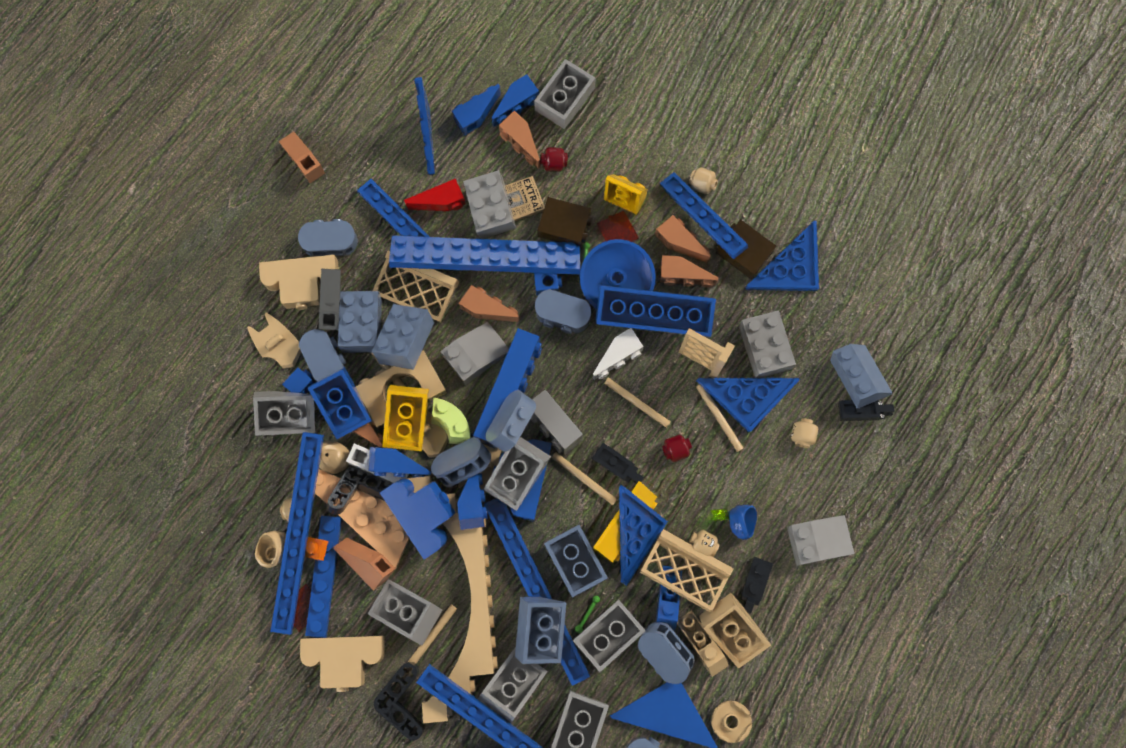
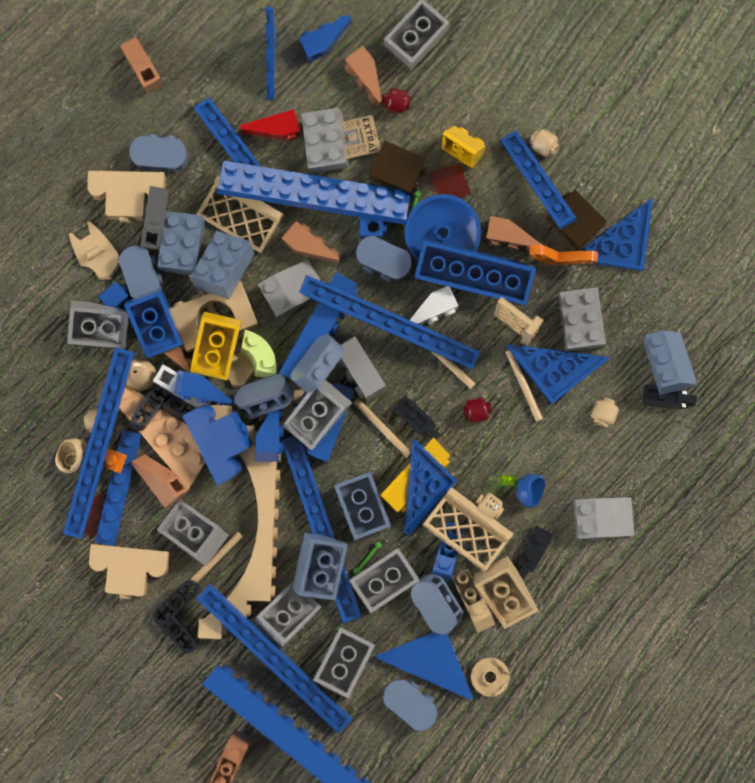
camera: 10 degrees right, 5 degrees up
(519, 96) = (369, 29): blue slope -> none
(576, 370) = (388, 322): none -> blue plate
(679, 239) = (511, 201): nougat slope -> none
(727, 287) = (551, 257): none -> orange beam

